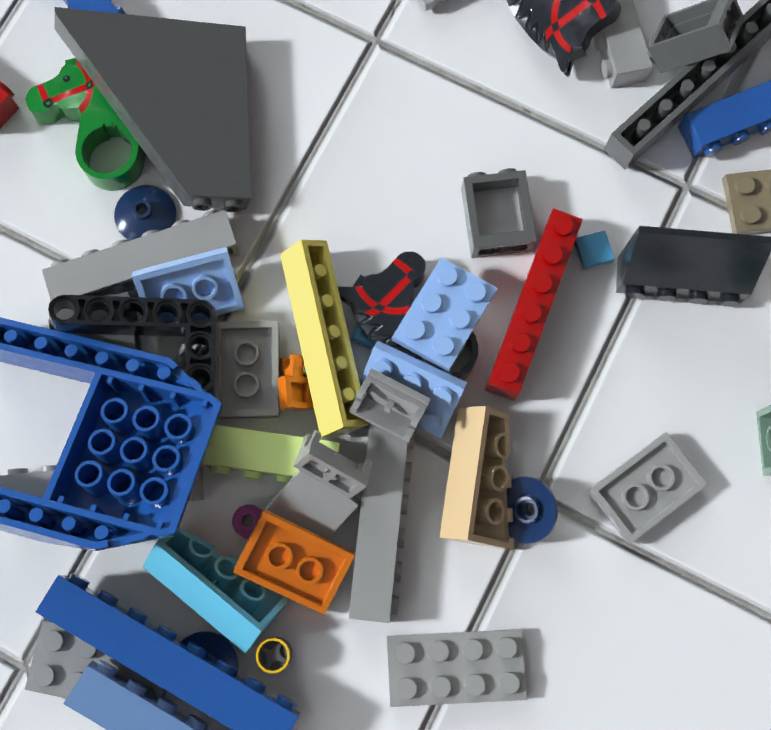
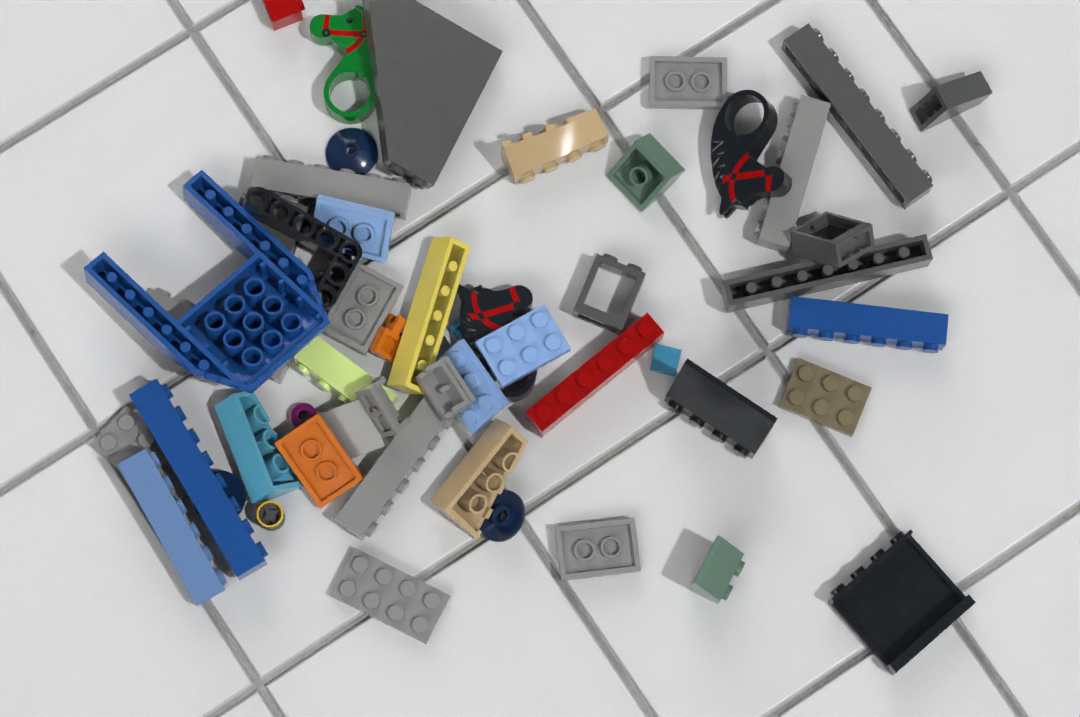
camera: 25 degrees right, 0 degrees up
(352, 95) = (554, 146): none -> tan wedge
(460, 73) = (645, 171): none -> sand green slope

